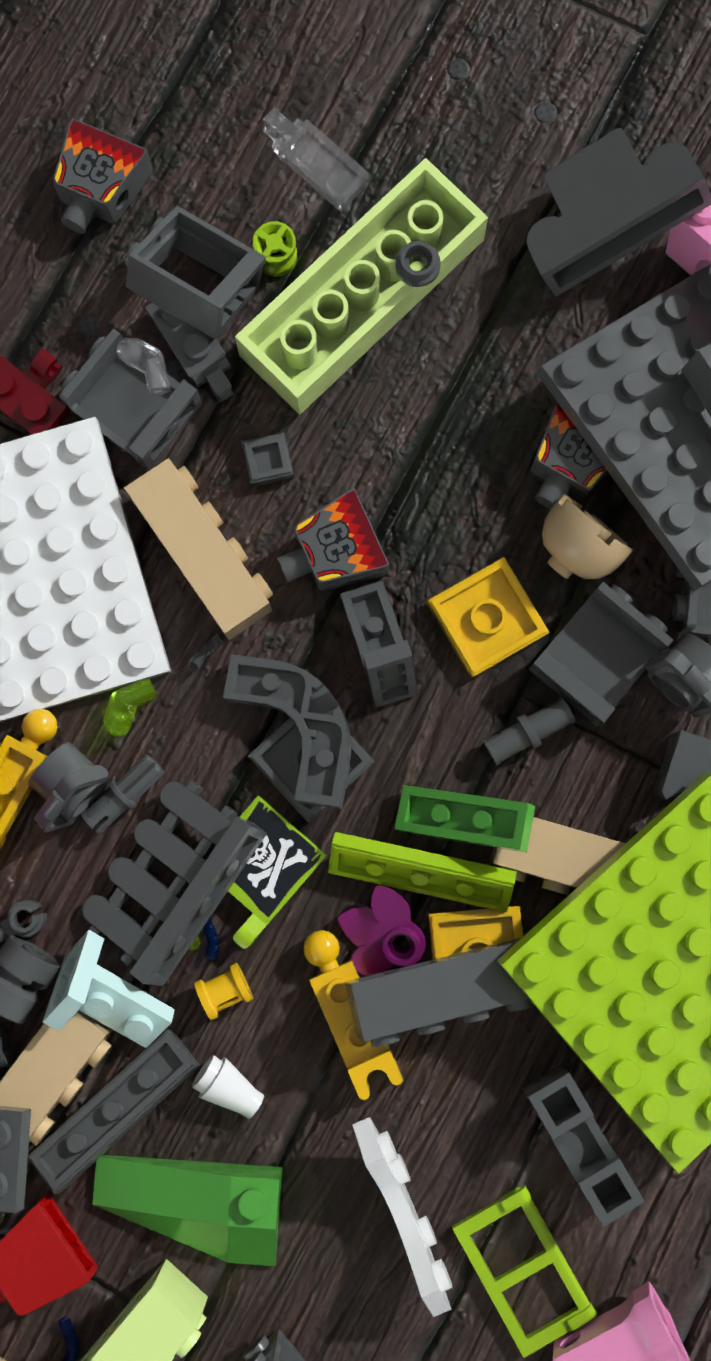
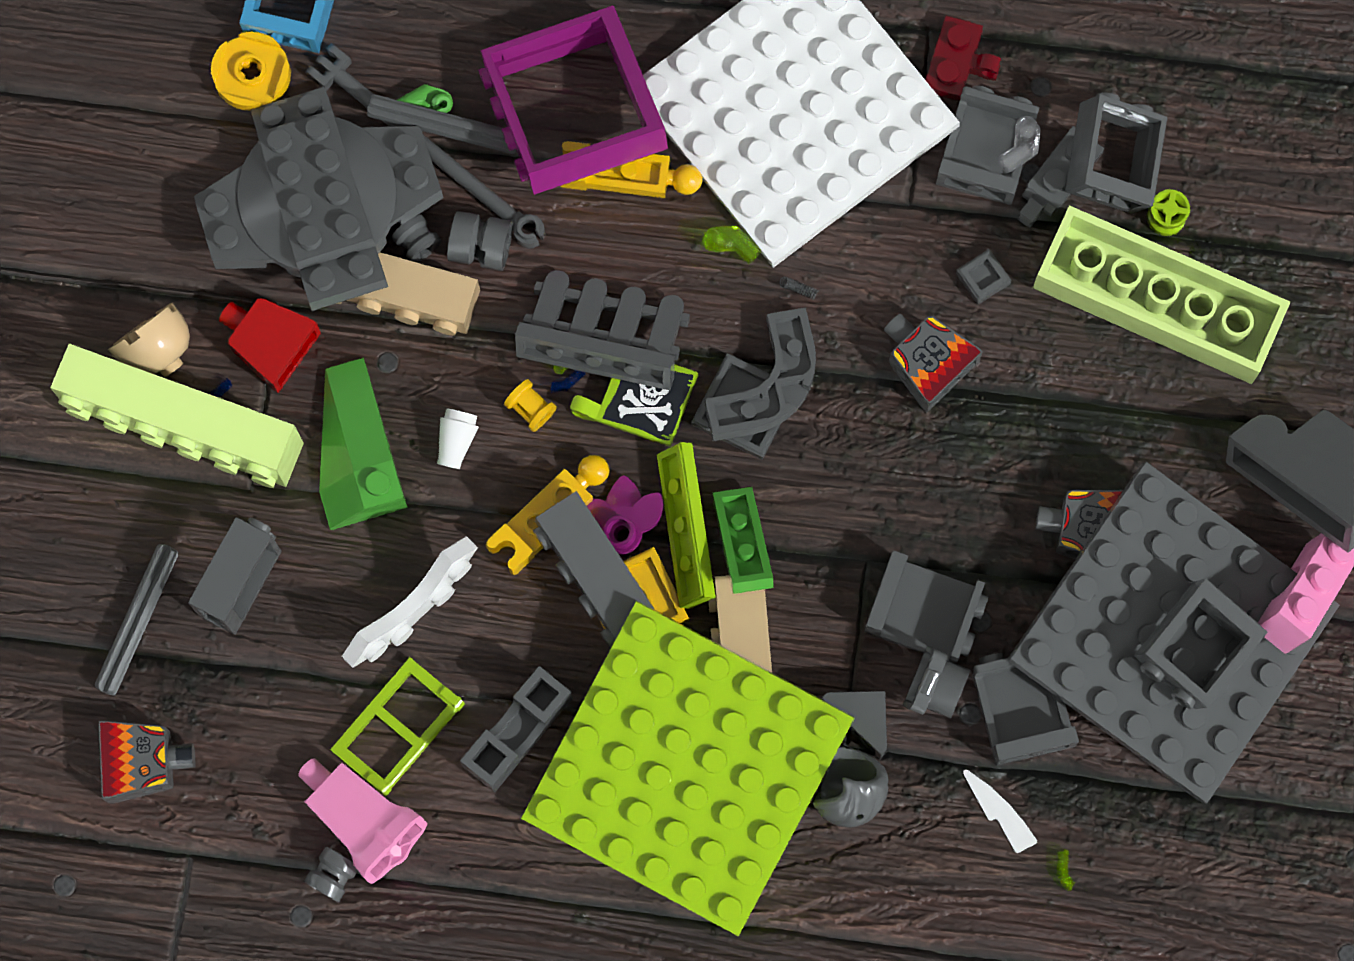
camera: 70 degrees right, 5 degrees down
(67, 785) = (647, 219): dark grey piece -> none
(98, 175) = (1169, 43): dark grey torso -> none
(104, 996) = (492, 314): light aqua bracket -> none
(113, 1111) = (404, 357): dark grey tile -> none
(122, 794) = (657, 266): dark grey axle -> none
(199, 548) = (883, 248): tan brick -> none
(316, 159) = (1262, 217): clear hinge -> none
(380, 644) = (859, 423): dark grey bracket -> none
(420, 252) = (1198, 319): dark grey plate -> none
(487, 617) = (920, 507): yellow tile -> none
(529, 731) = (836, 573): dark grey pin -> none
(581, 542) = (1014, 556): tan cylinder -> none

